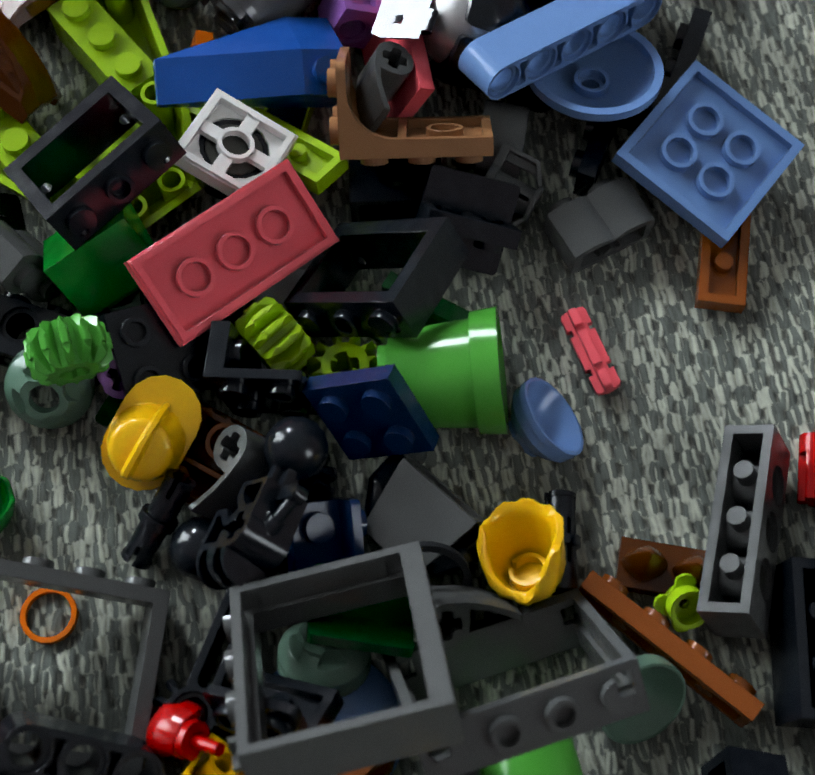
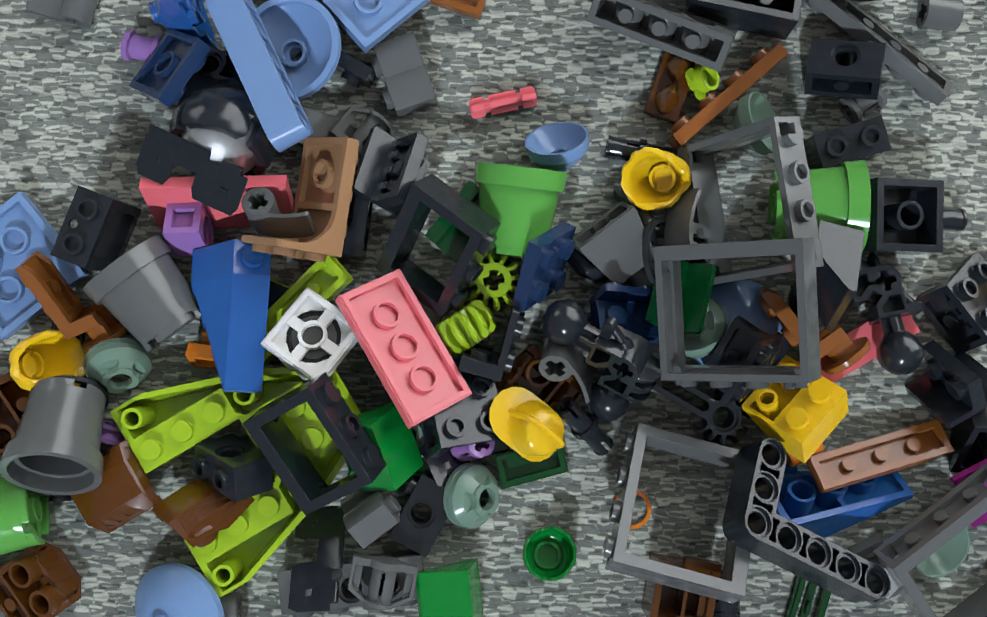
camera: 85 degrees left, 20 degrees up
(55, 89) = (233, 467): none -> black brick
(68, 350) = (467, 476): bright green gear -> none
(85, 445) = (516, 470): none -> dark green tile
(179, 733) = (744, 426): red piece -> none

